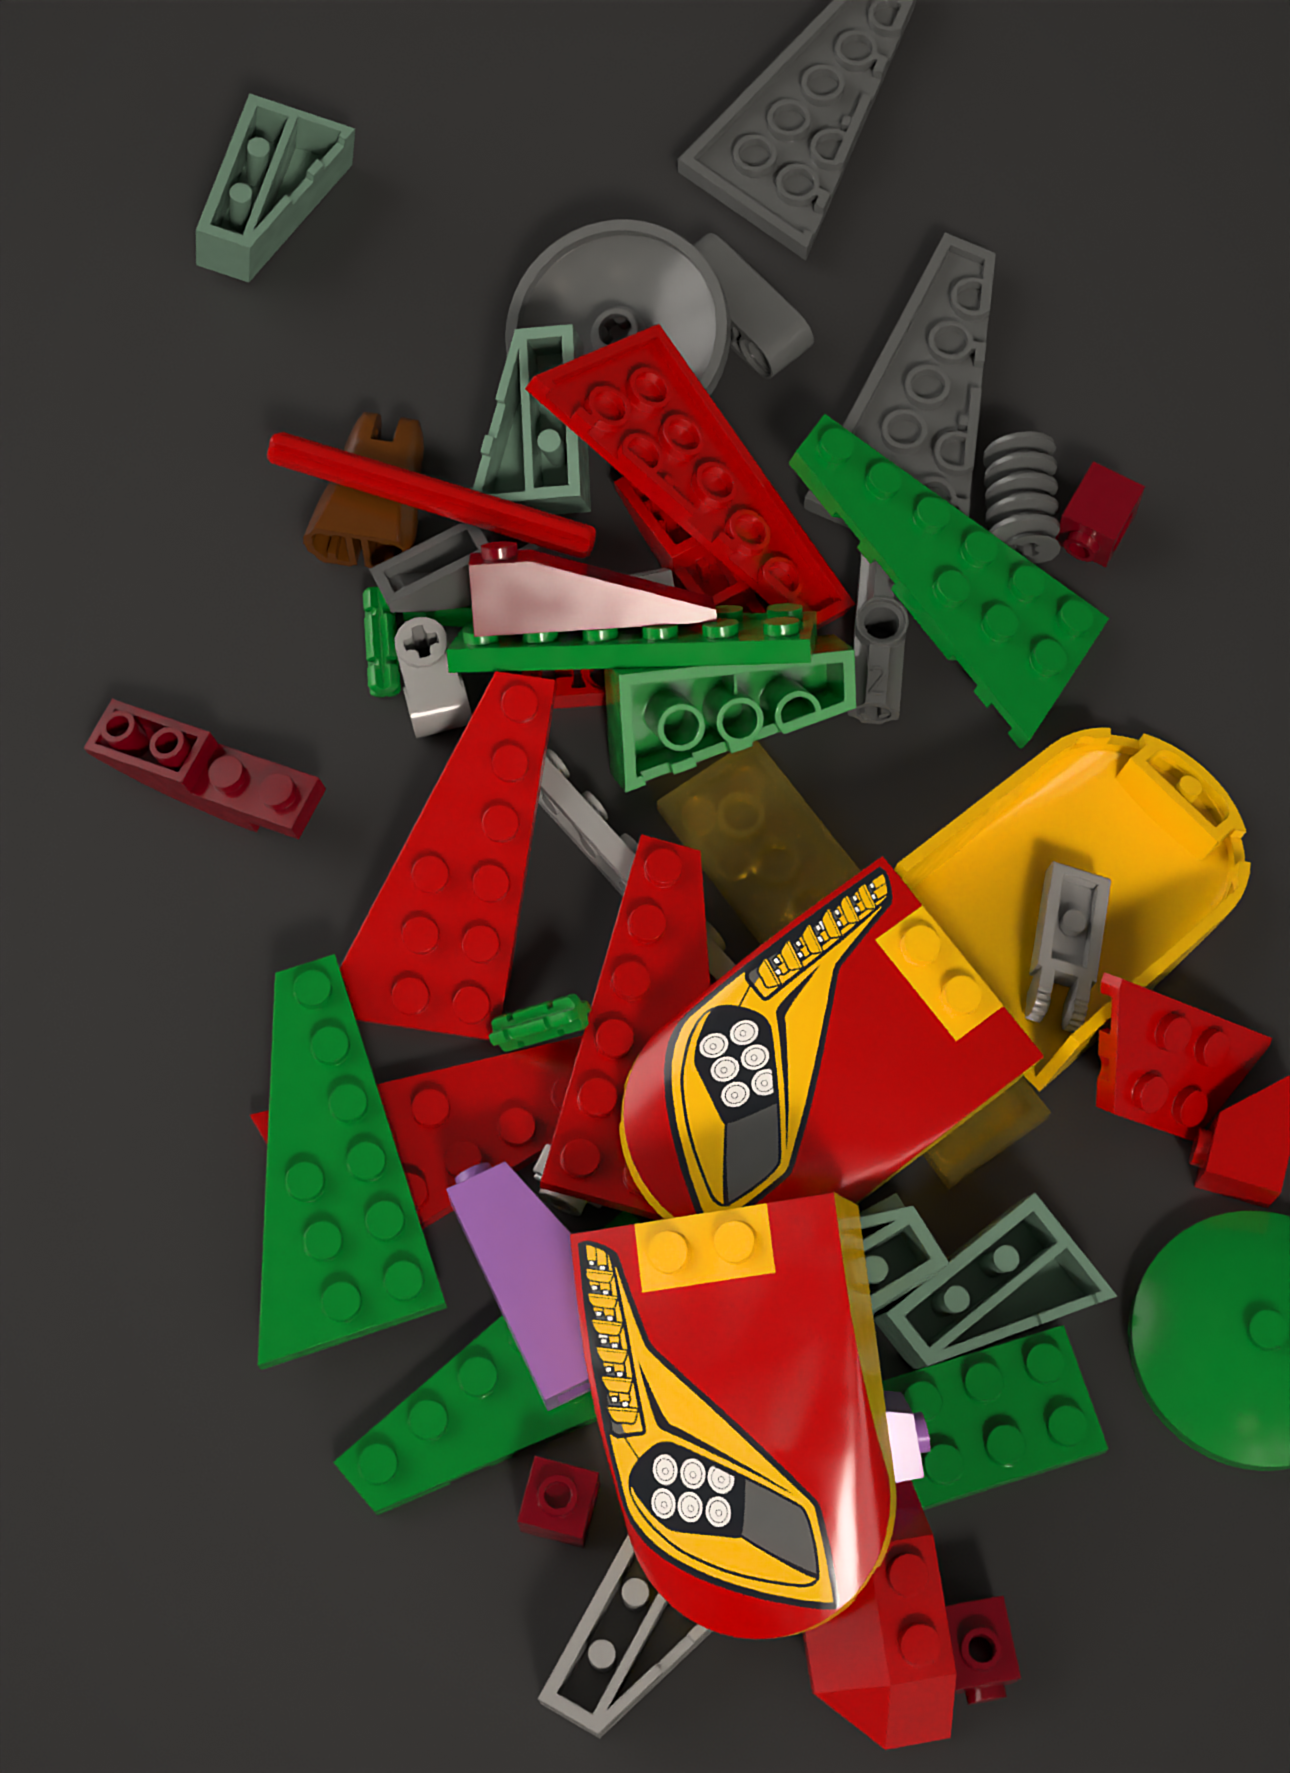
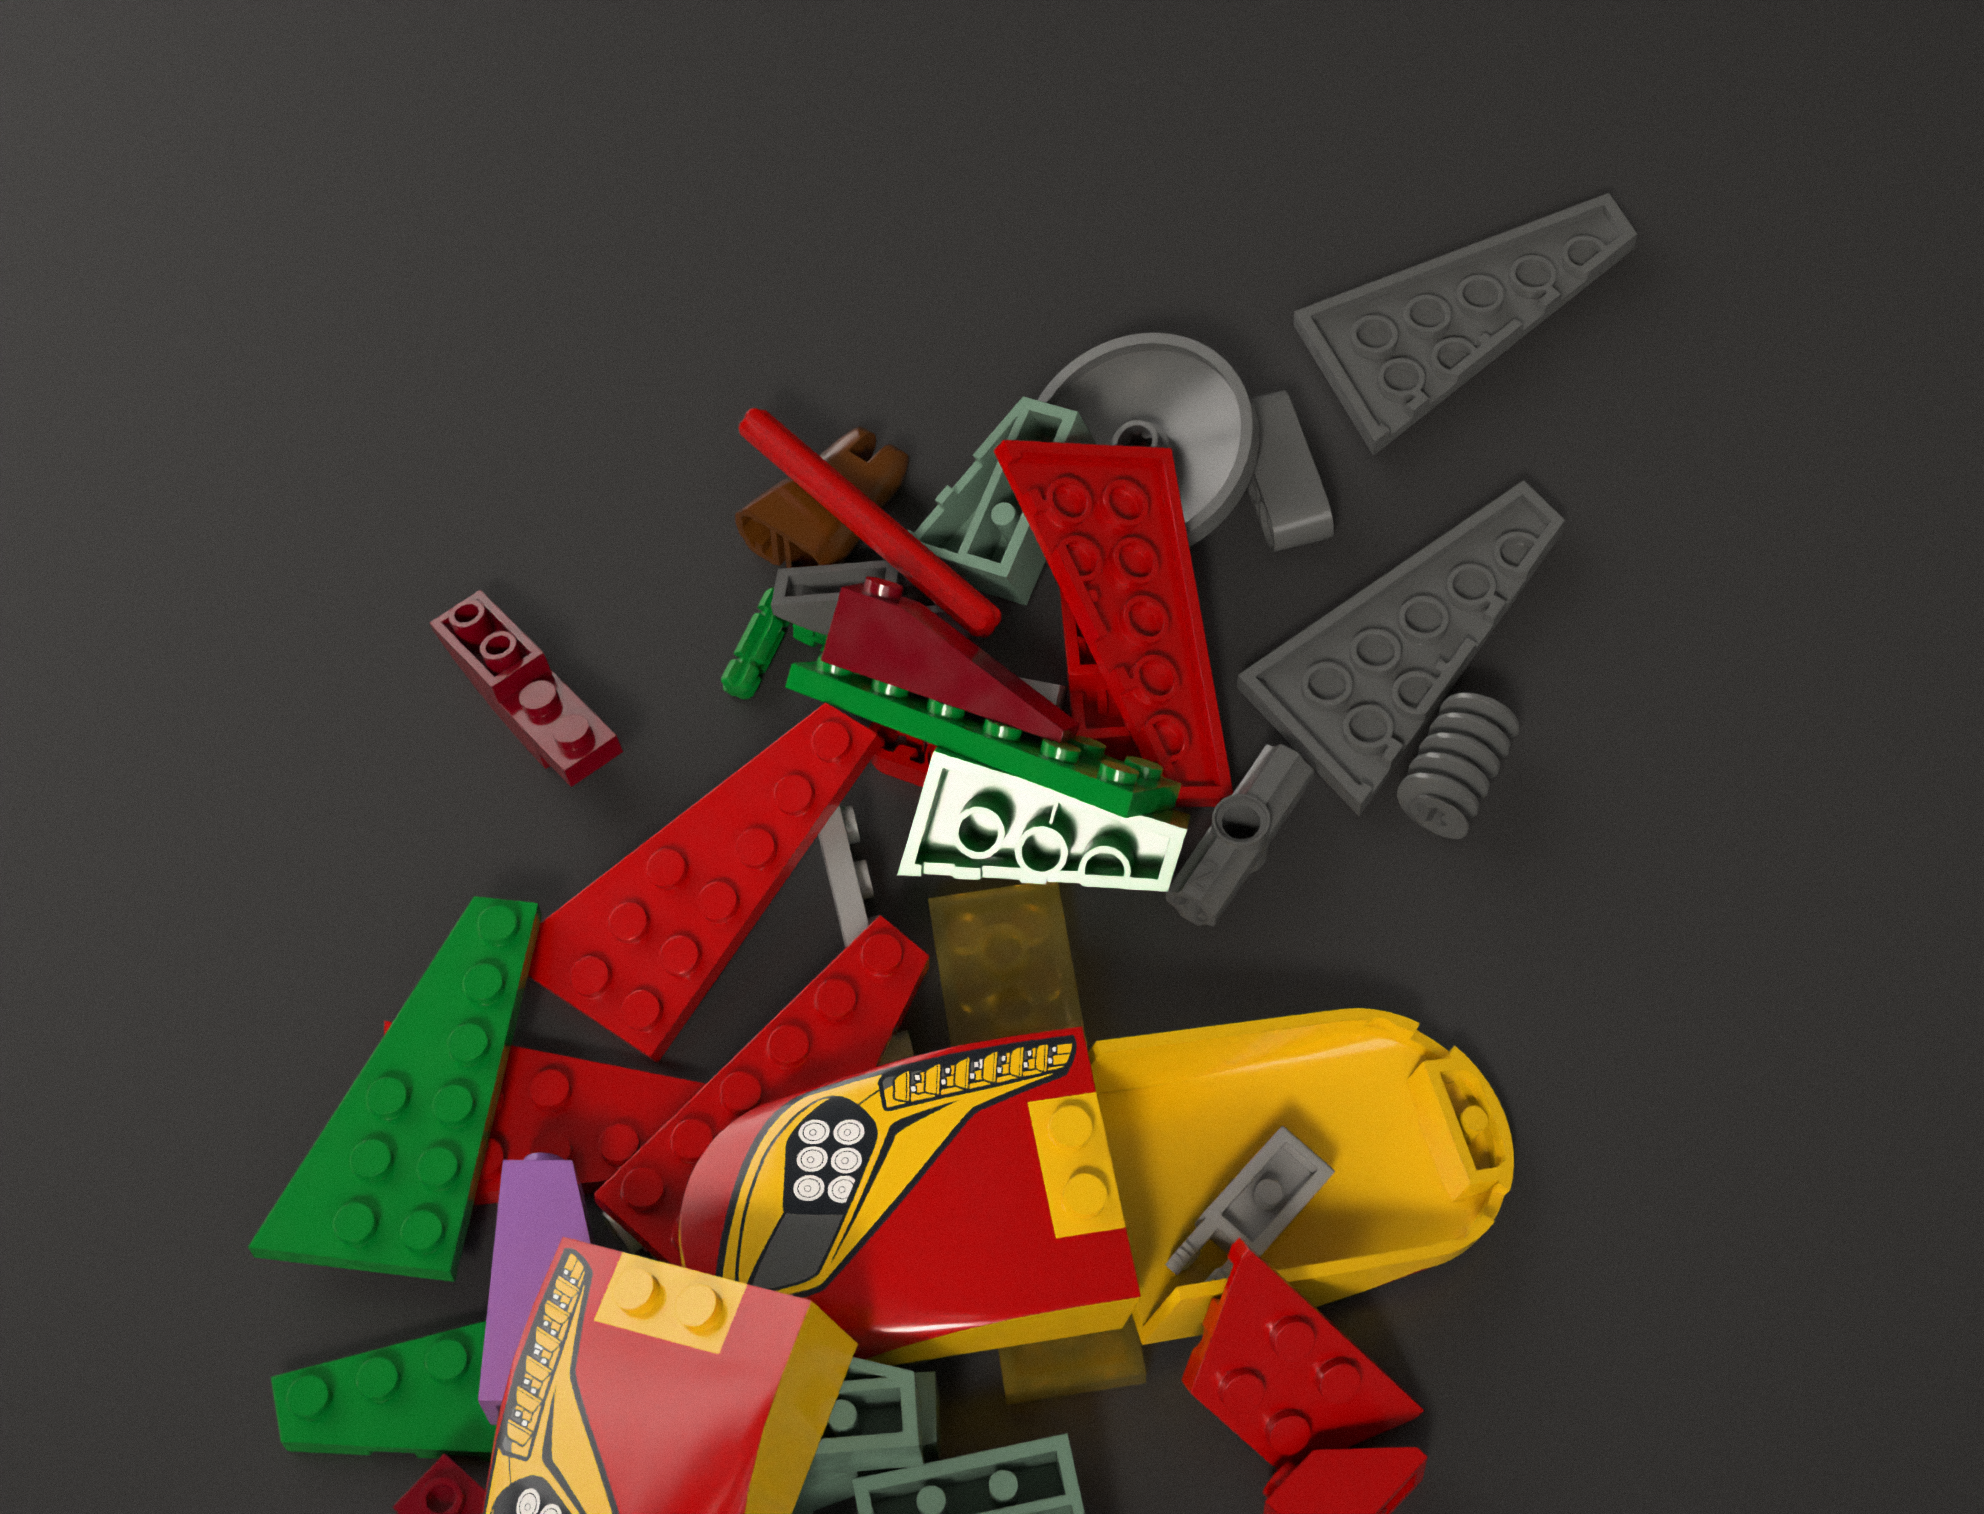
camera: 30 degrees right, 10 degrees down
(268, 184) = (887, 188): sand green wedge -> none
(432, 695) = (767, 706): light grey piece -> none
(540, 1022) = (687, 1051): green axle -> none
(963, 585) = (1347, 831): green wing -> none
(1099, 515) = (1530, 814): dark red brick -> none

